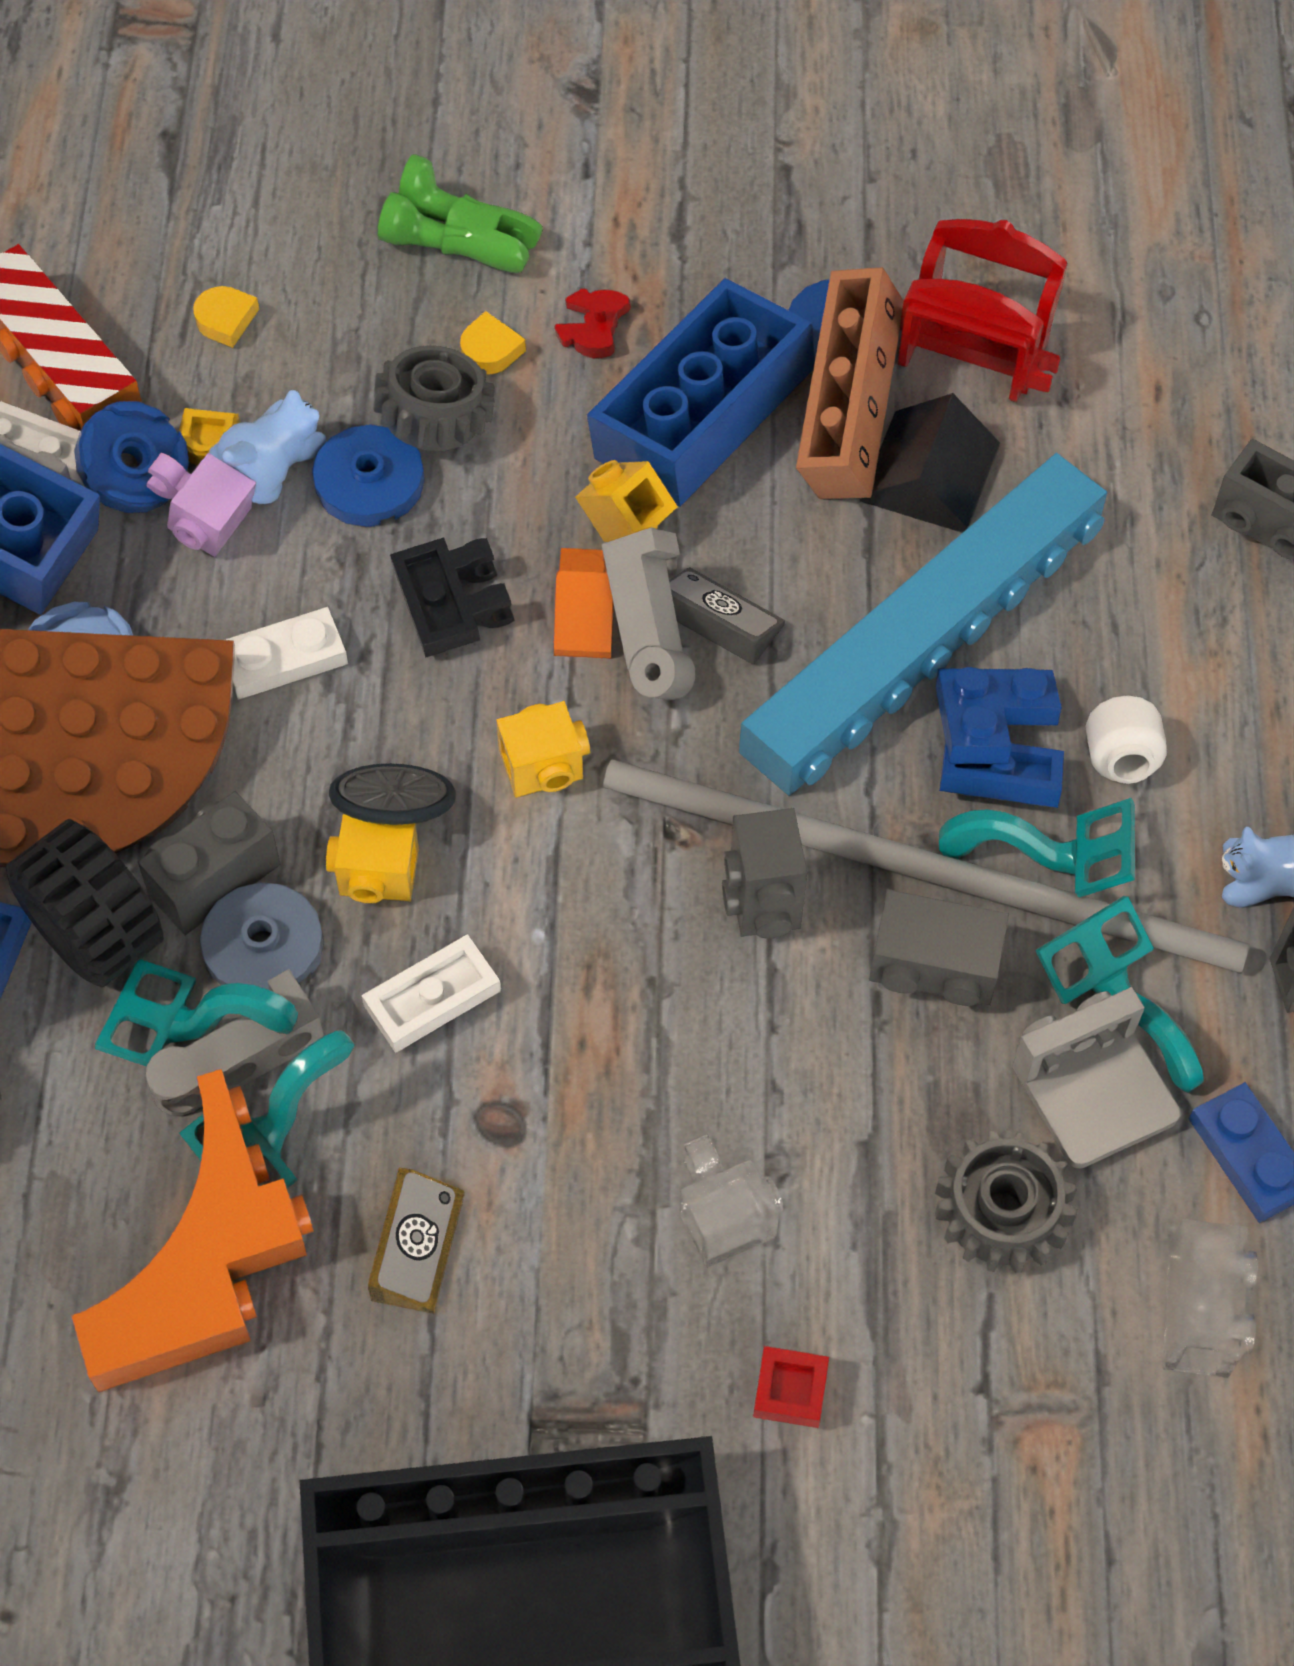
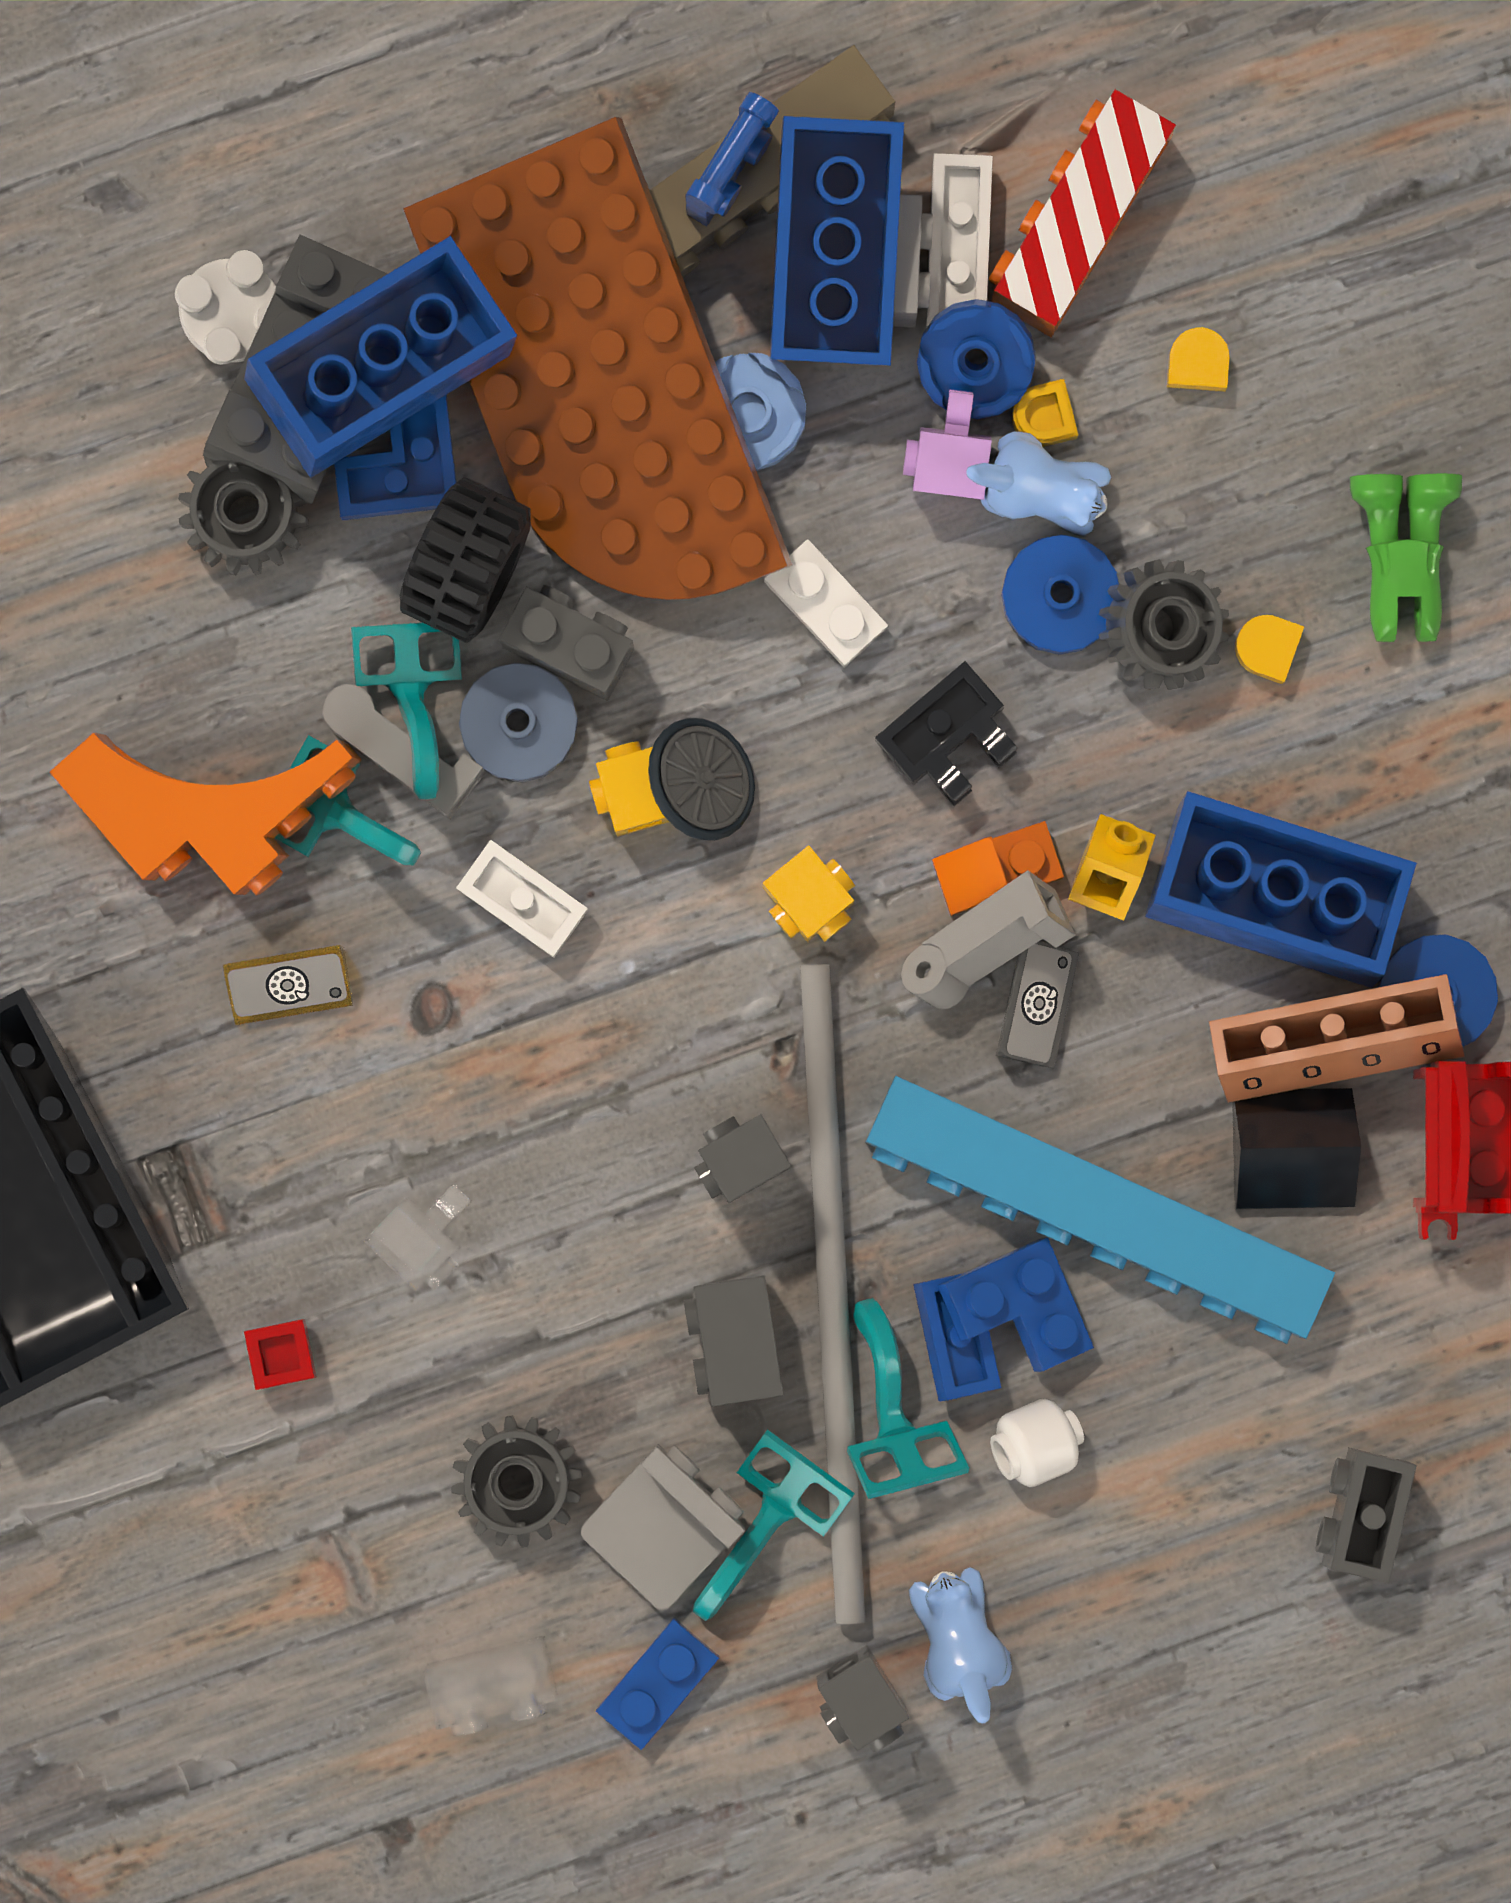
camera: 70 degrees right, 25 degrees up
(601, 318) = (1325, 747): red piece -> none

